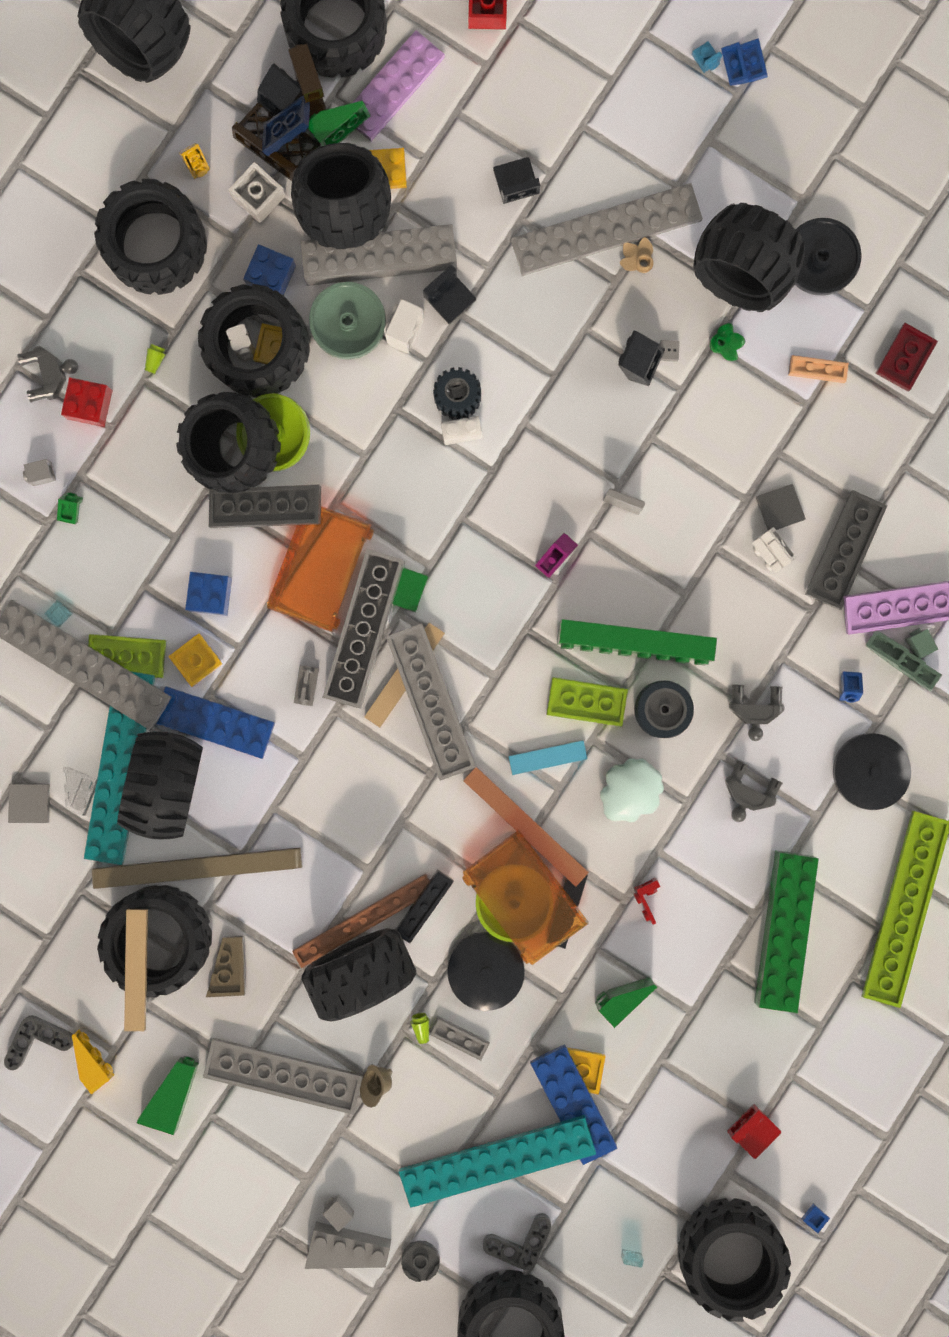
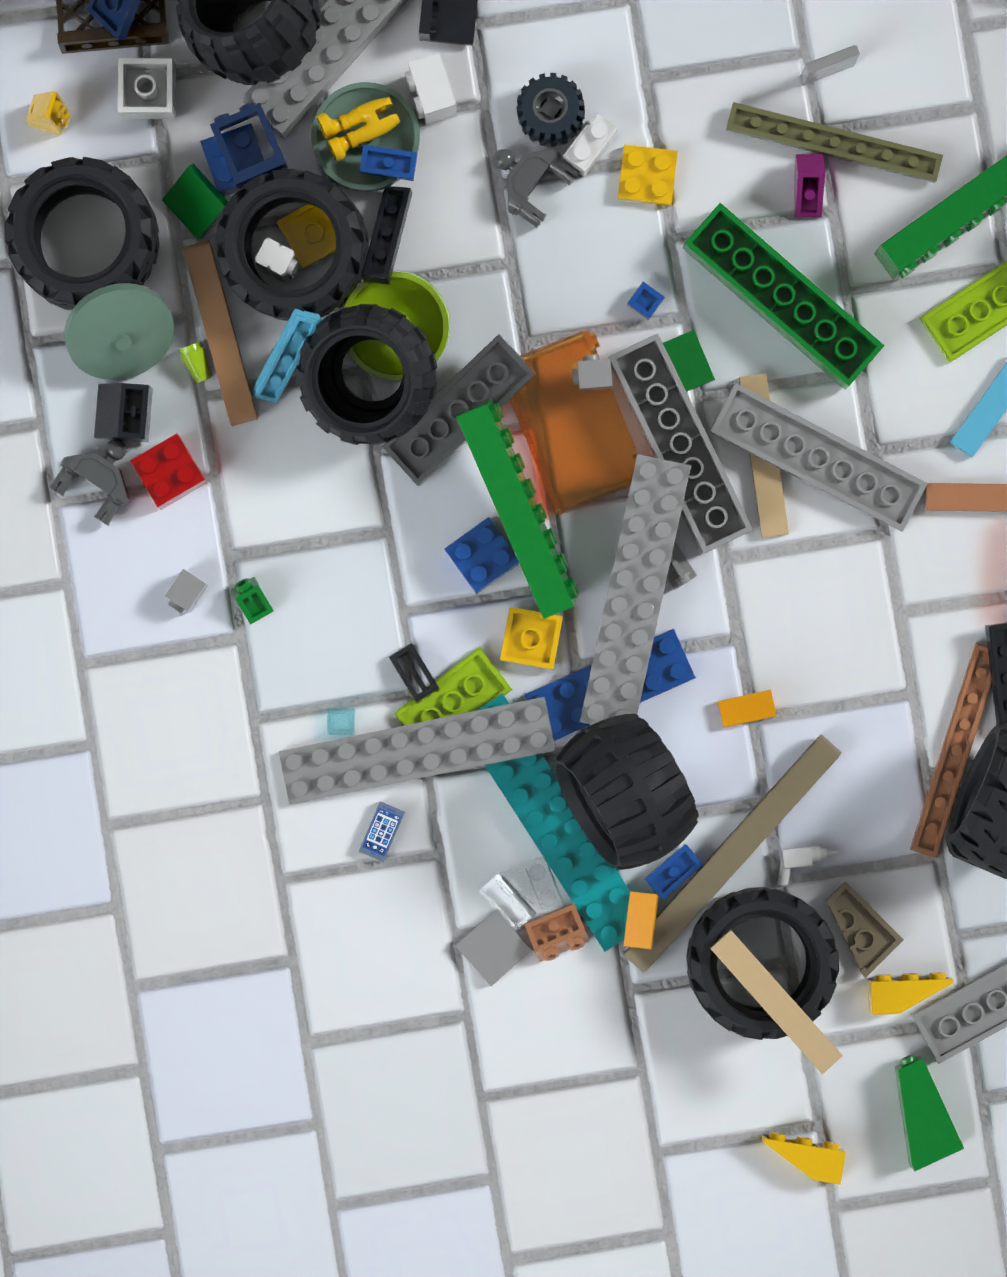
camera: 35 degrees left, 0 degrees up
(26, 690) = (381, 831): none -> tile
(36, 1033) = (723, 1177): dark grey beam -> none
(57, 786) = (507, 901): none -> clear tile
(67, 826) = (557, 933): none -> nougat bracket
(92, 351) = (123, 412): none -> black slope
(114, 860) = (641, 920): none -> light orange tile
(115, 638) = (425, 692): none -> black tile
(123, 304) = (119, 331): none -> sand green dish
(157, 849) = (673, 871): none -> blue plate
(176, 359) = (220, 333): none -> medium nougat beam
(184, 400) = (285, 356): none -> medium azure tile
(216, 1022) = (899, 995): none -> yellow slope
(228, 272) = (195, 201): none -> green tile
(230, 902) = (800, 858): none -> white piece
(245, 584) = (517, 508): none -> green brick
(268, 684) = (635, 589): none -> light grey plate
(274, 799) = (746, 708): none -> light orange tile
(284, 289) = (265, 167): none -> dark blue window
(310, 381) = (387, 235): none -> black tile
(345, 343) = (388, 162): none -> blue plate
(350, 550) = (593, 374): none -> light grey brick
(353, 305) = (364, 113): none -> yellow piece
(412, 417) = (525, 177): none -> dark grey connector
(416, 538) = (645, 300): none -> blue plate
(478, 473) = (647, 175): none -> yellow plate
(489, 600) = (782, 296): none -> green brick
(590, 544) = (834, 142): none -> olive plate

